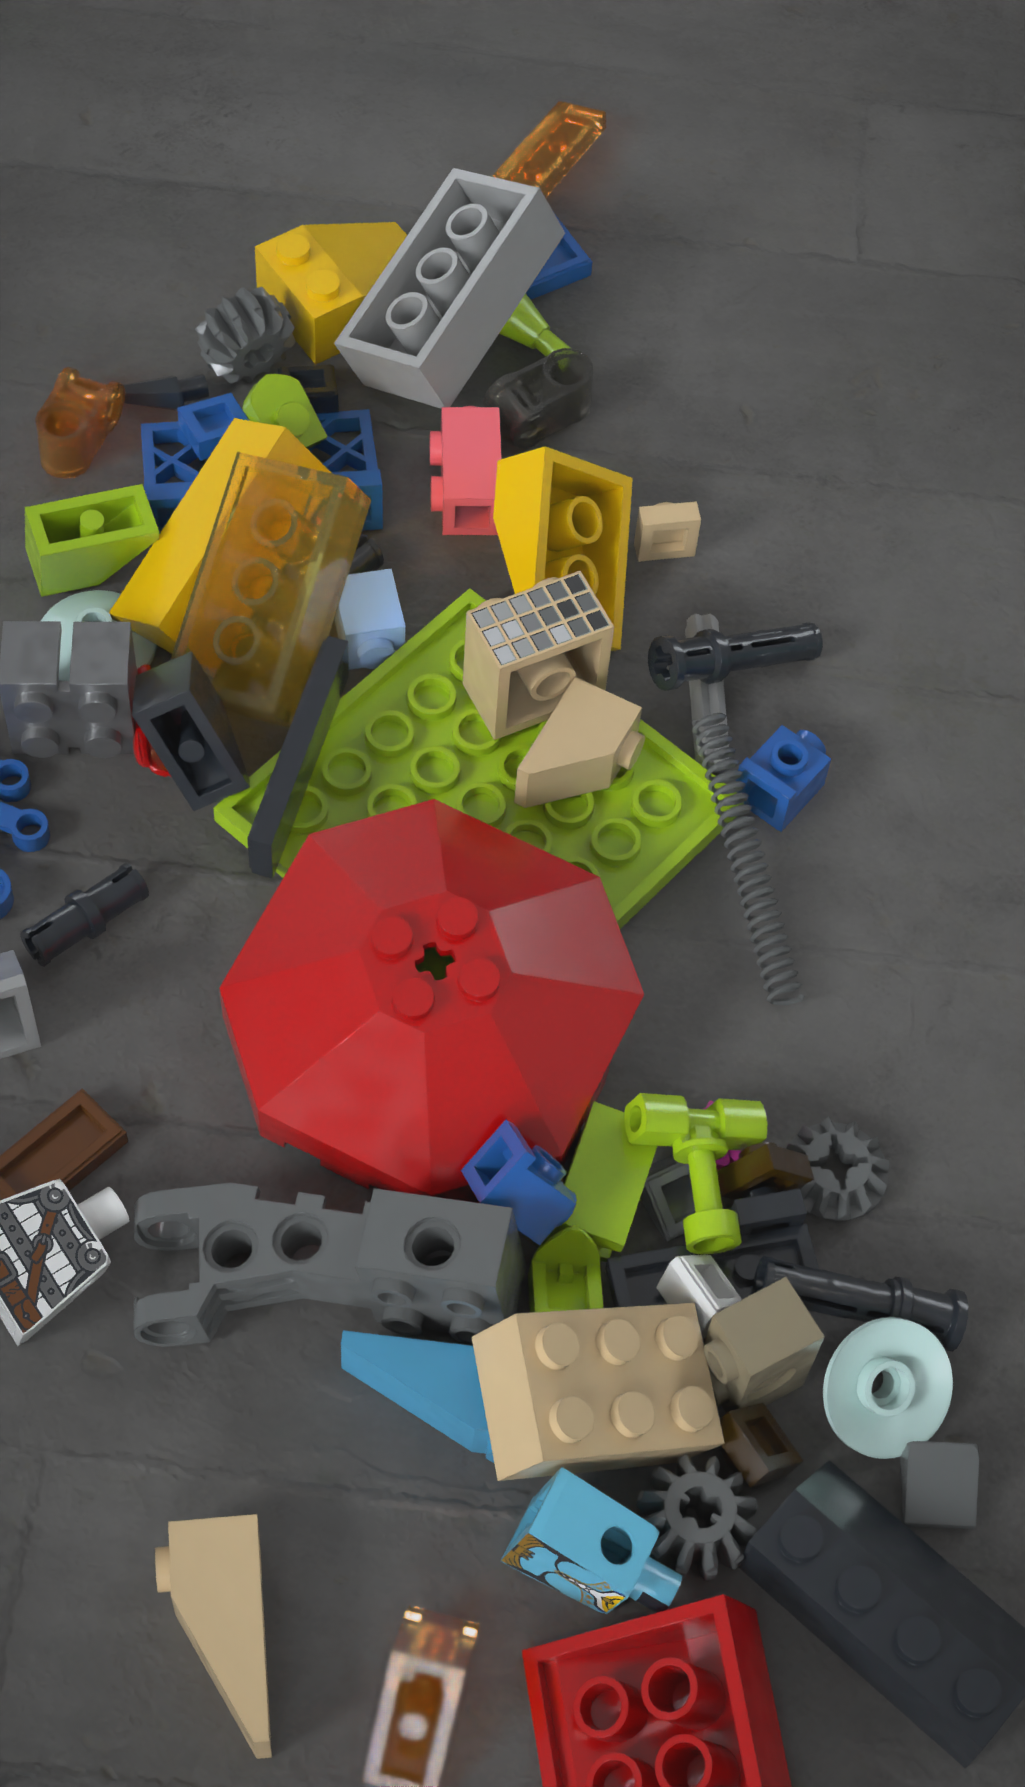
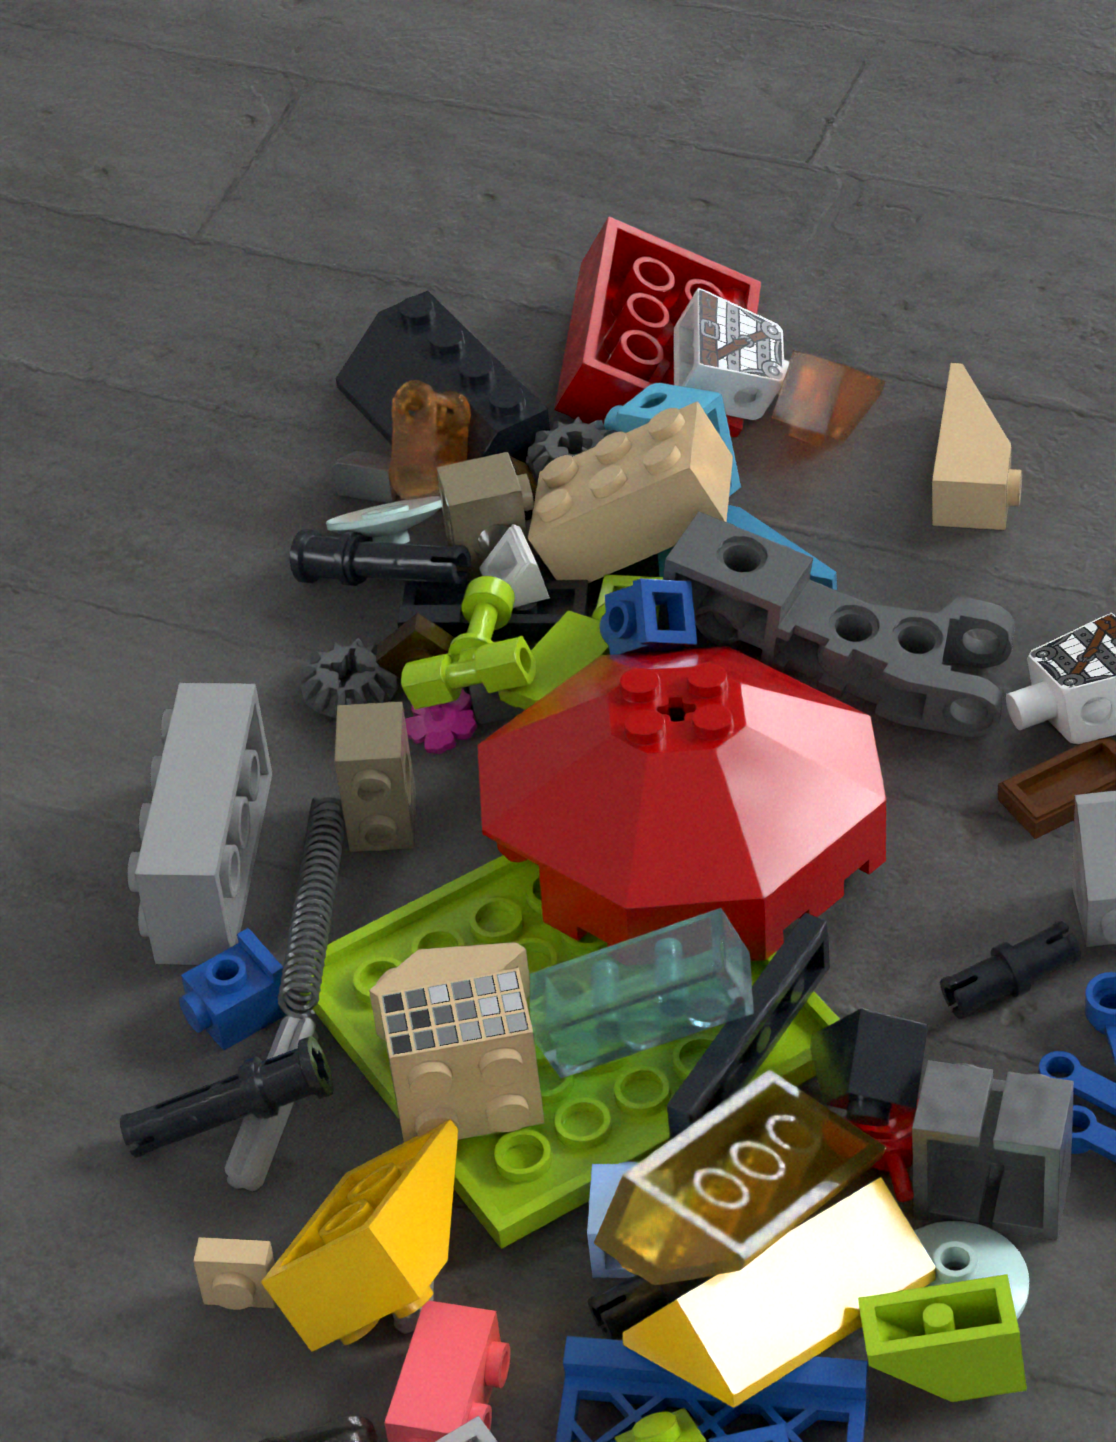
camera: 155 degrees left, 15 degrees down
(398, 736) = (641, 993): none -> clear light blue brick
(553, 1706) = (729, 353): none -> torso
(741, 982) = (375, 776): none -> dark tan brick
(871, 1482) = (426, 439): none -> clear orange piece
(885, 906) = (201, 822): none -> light grey brick

